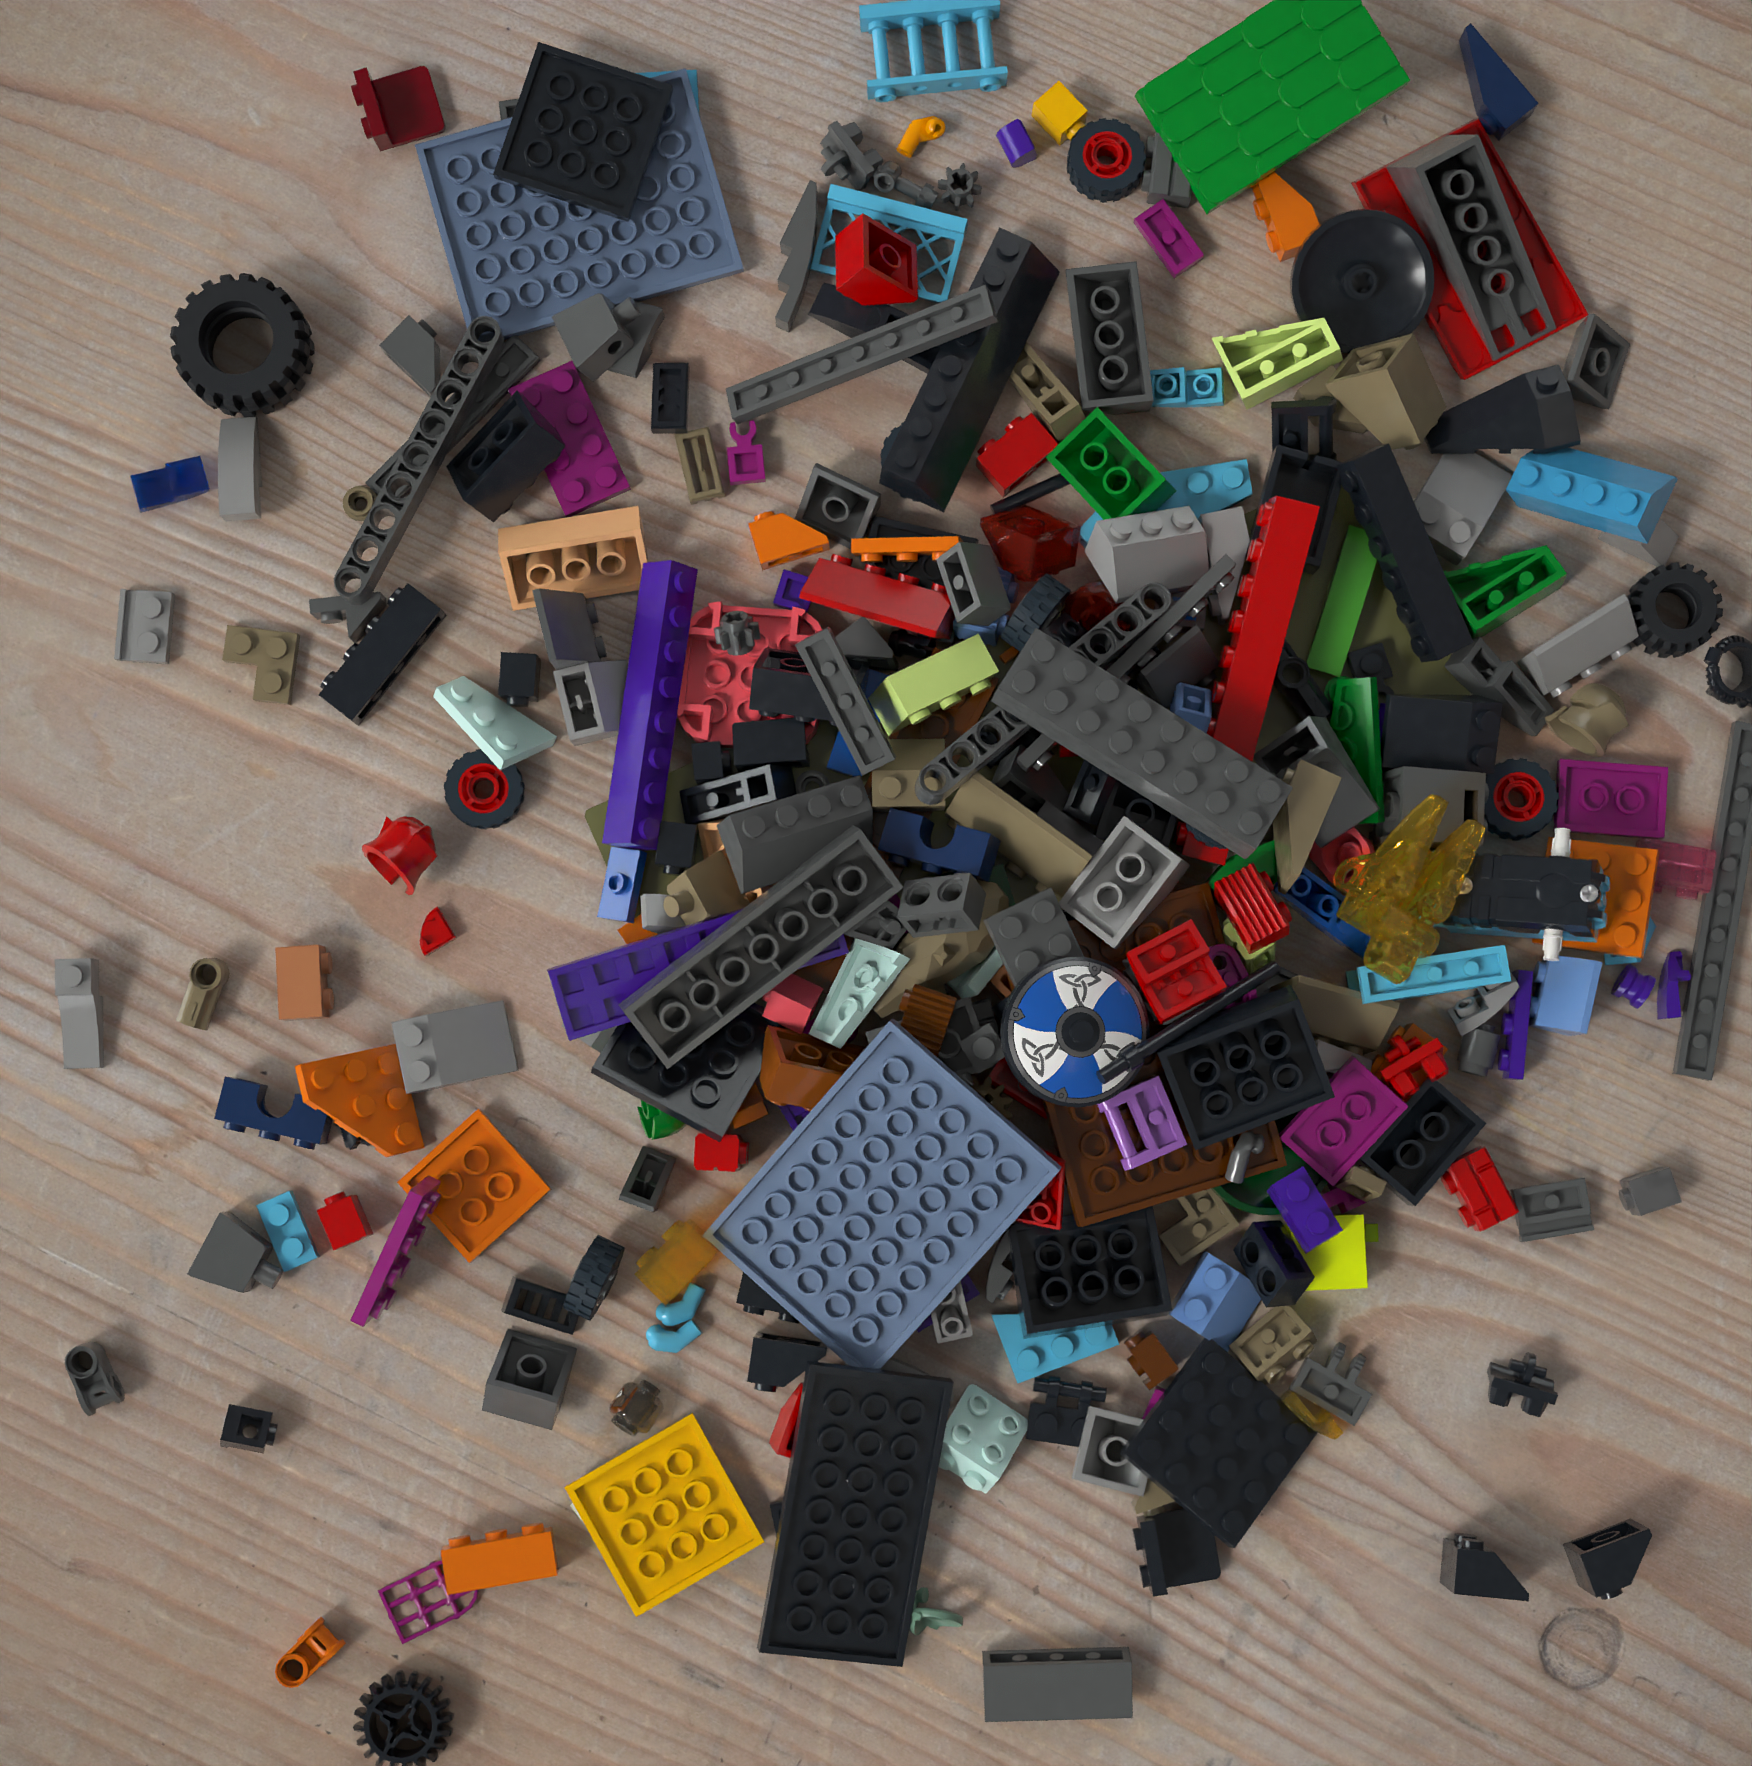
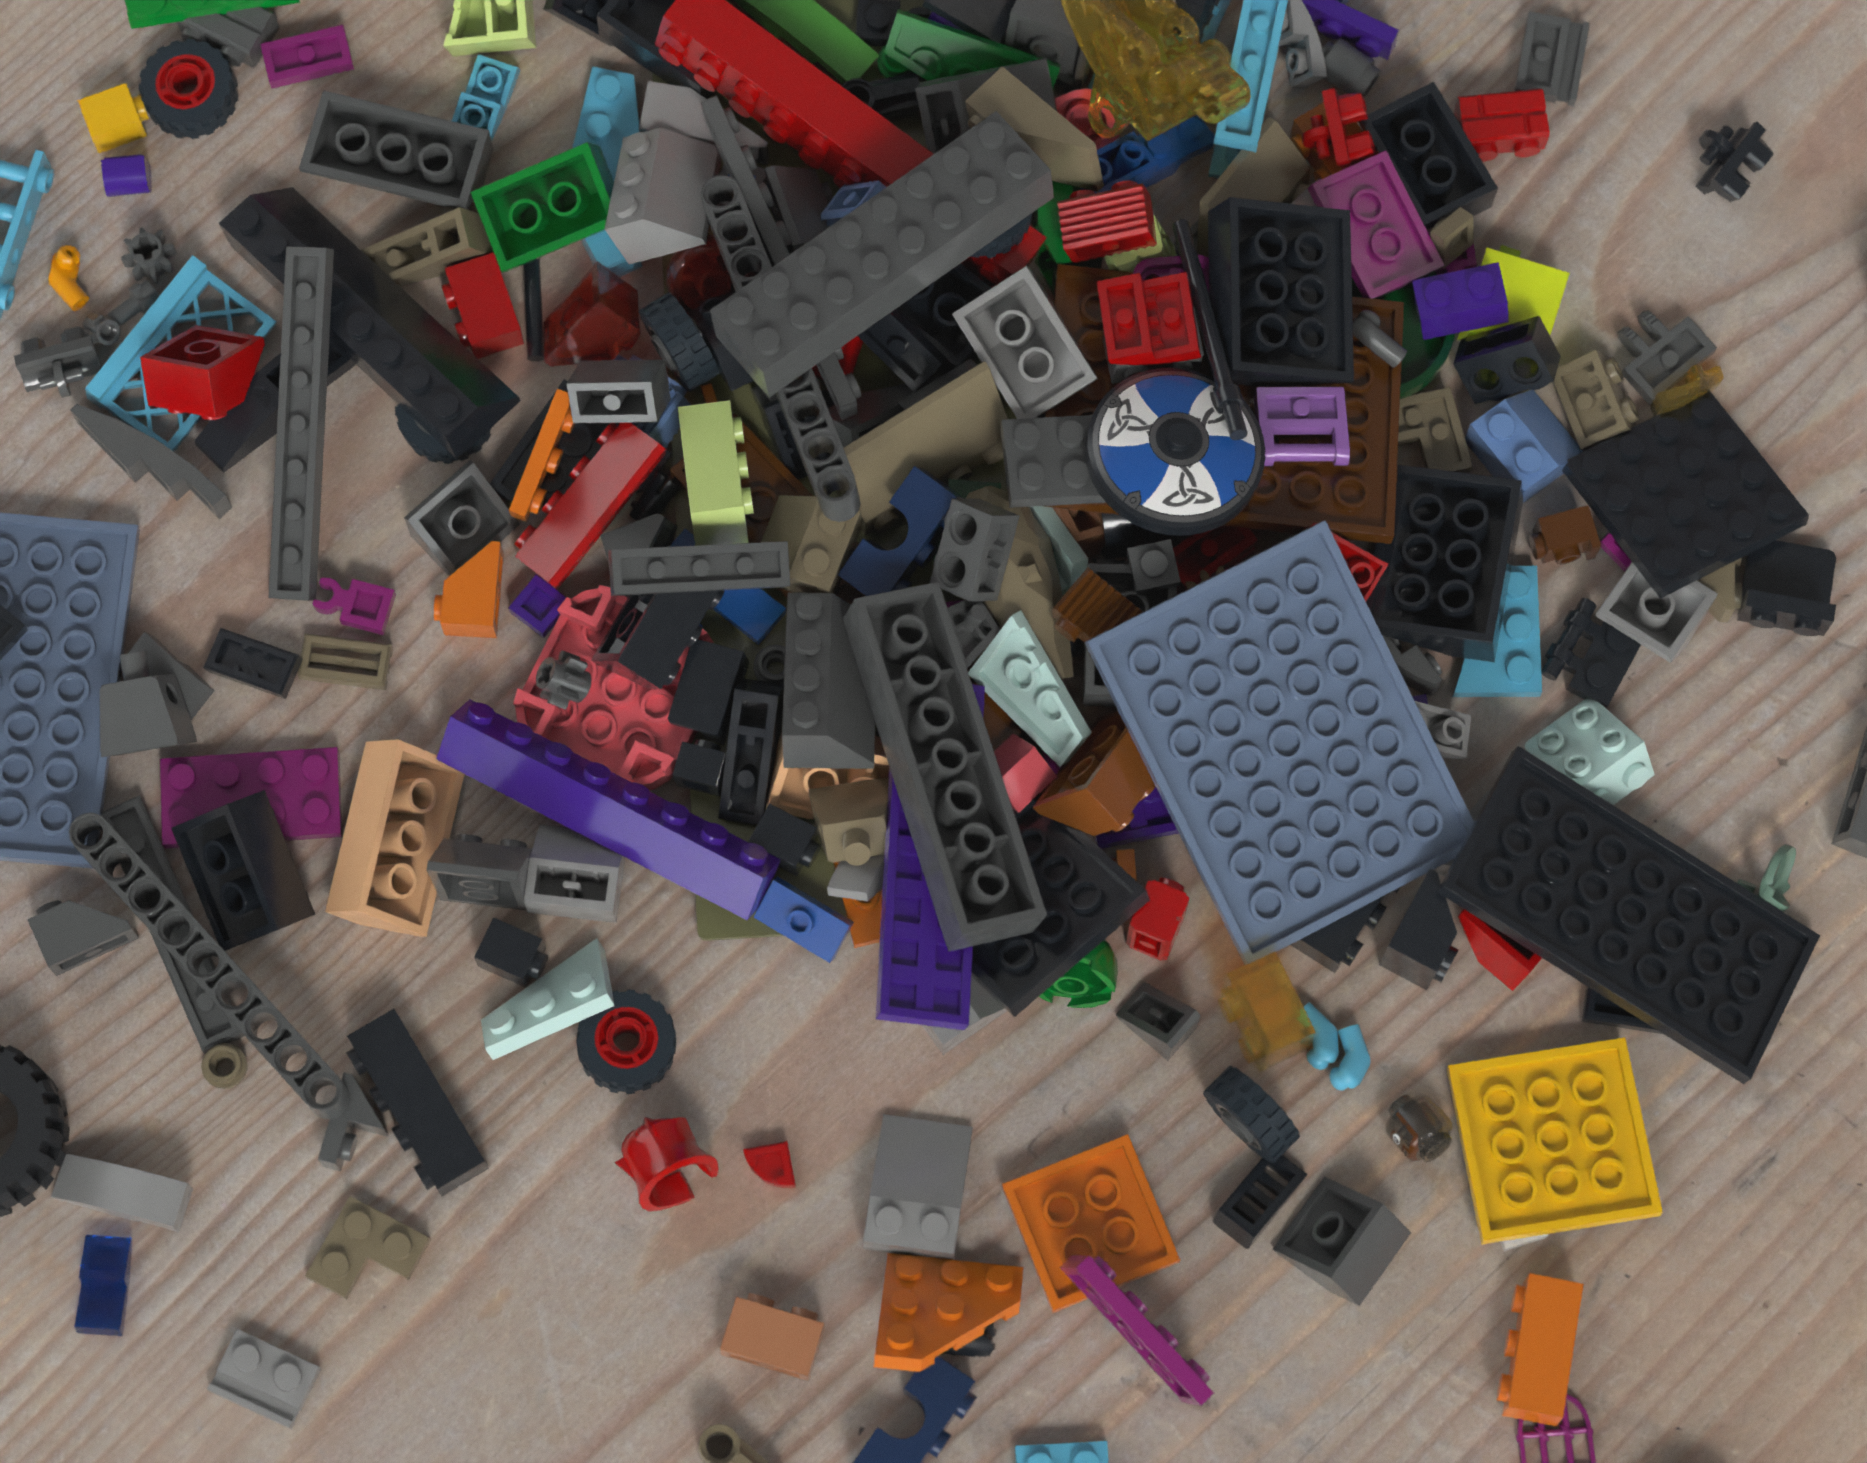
camera: 75 degrees left, 10 degrees down
(344, 1220) = (1075, 1390): red brick -> none

